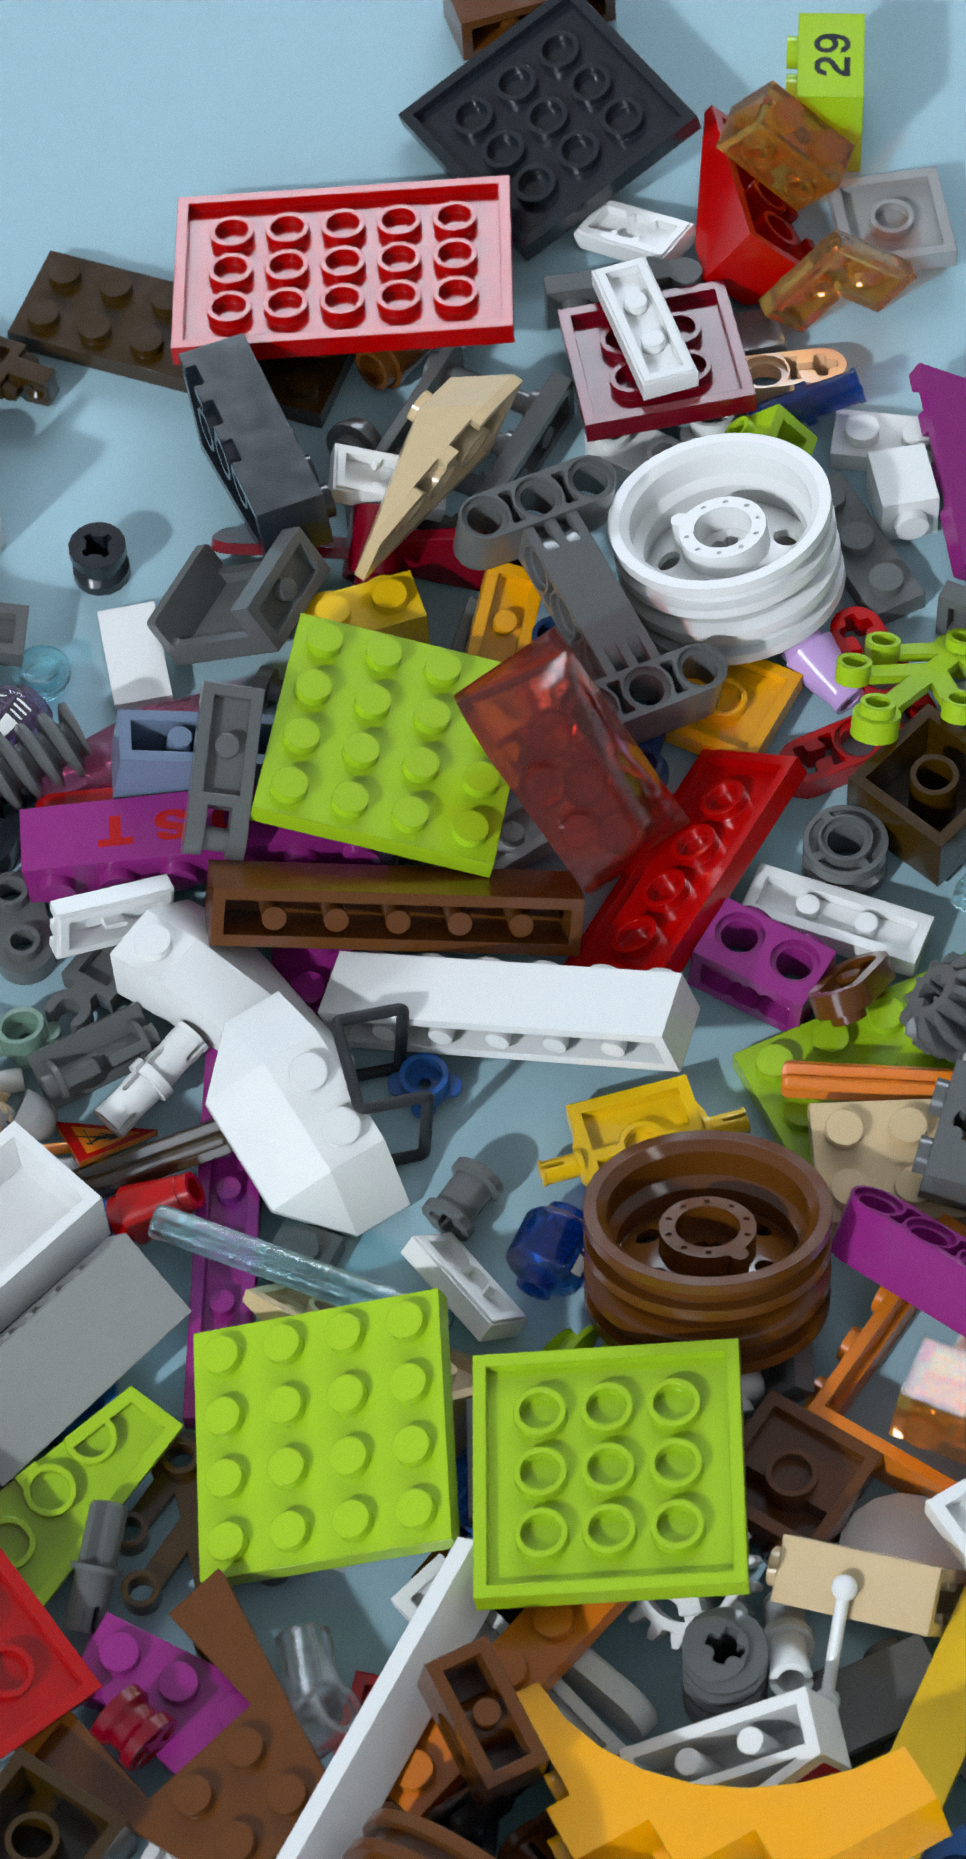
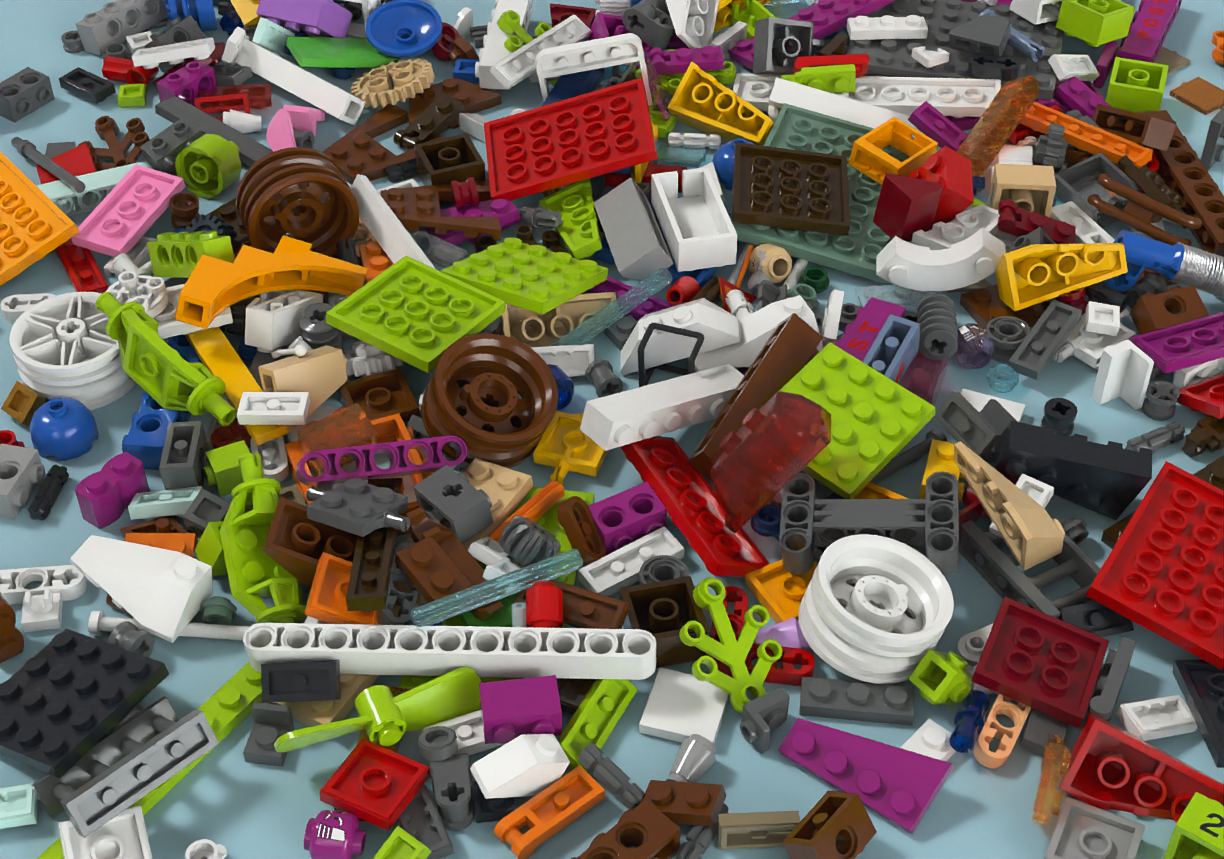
camera: 120 degrees right, 15 degrees down
(59, 435) = (1157, 438): none -> dark grey axle
(223, 768) = (863, 341): dark grey plate -> none
(482, 1721) = (360, 241): reddish brown brick -> none
(522, 359) = (1095, 619): none -> black plate
(644, 328) = (1060, 652): white tile -> none
(785, 146) = (1169, 793): clear orange brick -> none
(903, 492) = (875, 722): white brick -> none

